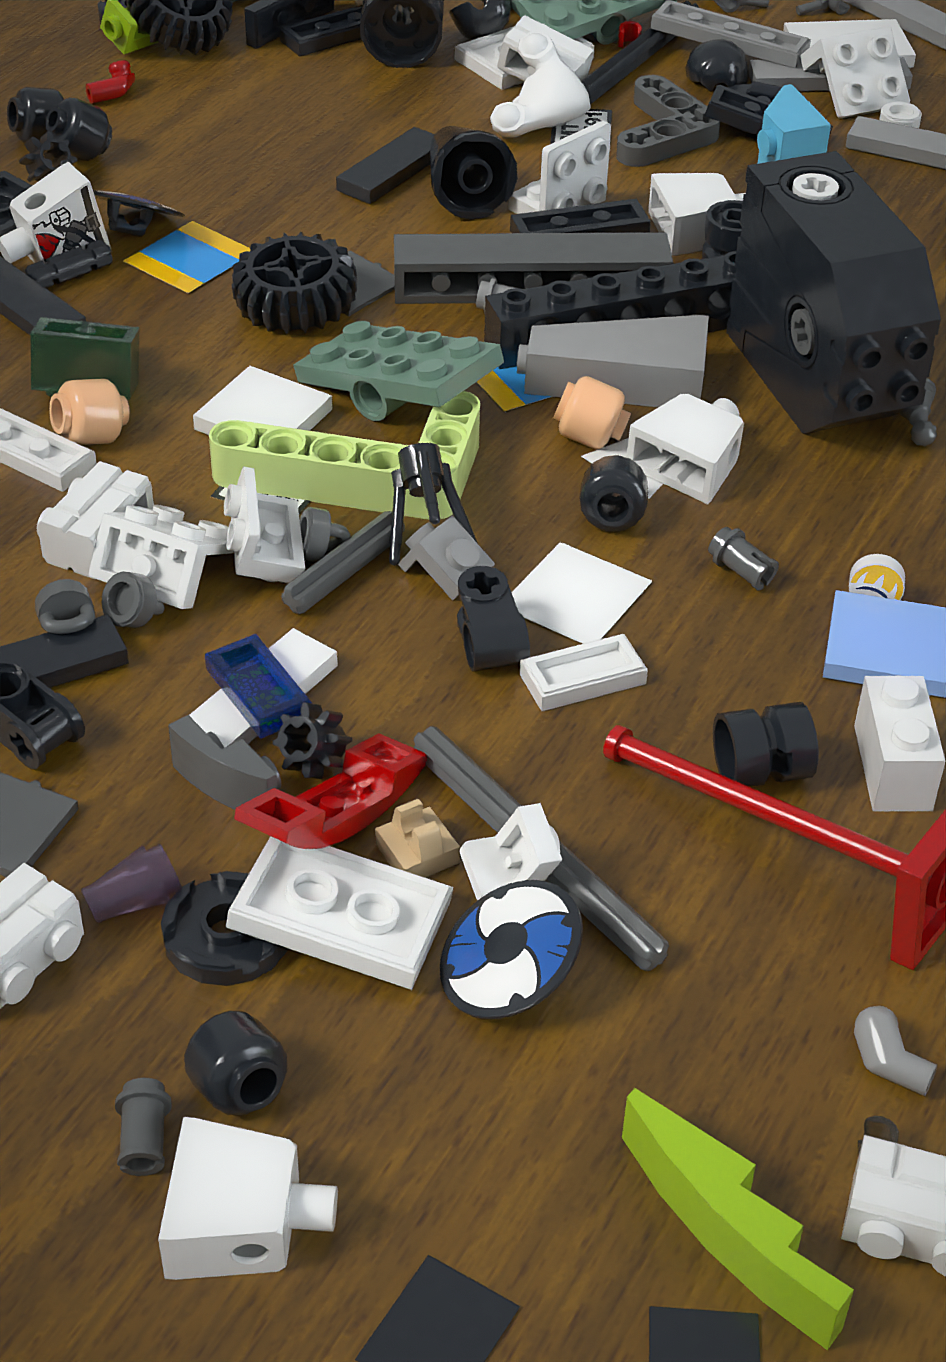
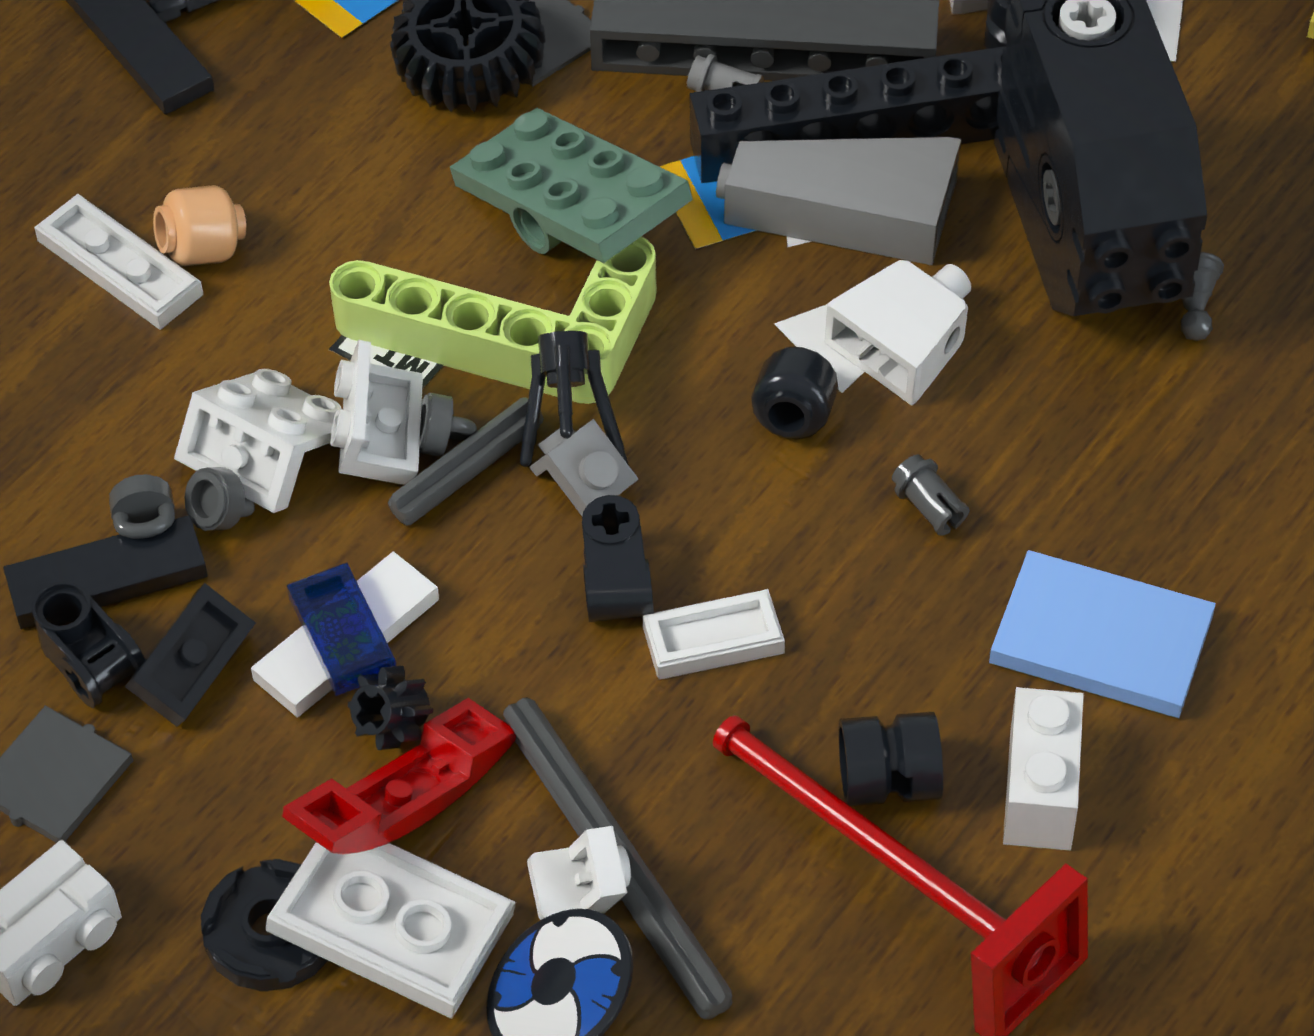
camera: 10 degrees right, 10 degrees up
(72, 526) = (188, 361): white brick -> none
(83, 351) = (202, 145): clear green brick -> none
(123, 716) = (190, 655): none -> black plate
(133, 884) = (177, 867): clear purple cone -> none
(225, 774) = (292, 738): dark grey slope -> none
(265, 400) = (406, 227): white tile -> none
(417, 841) = (487, 841): tan tile -> none
(577, 594) = (728, 523): white sticker -> none
(591, 412) = (792, 269): light nougat head -> none
(878, 577) = (1079, 540): tile -> none

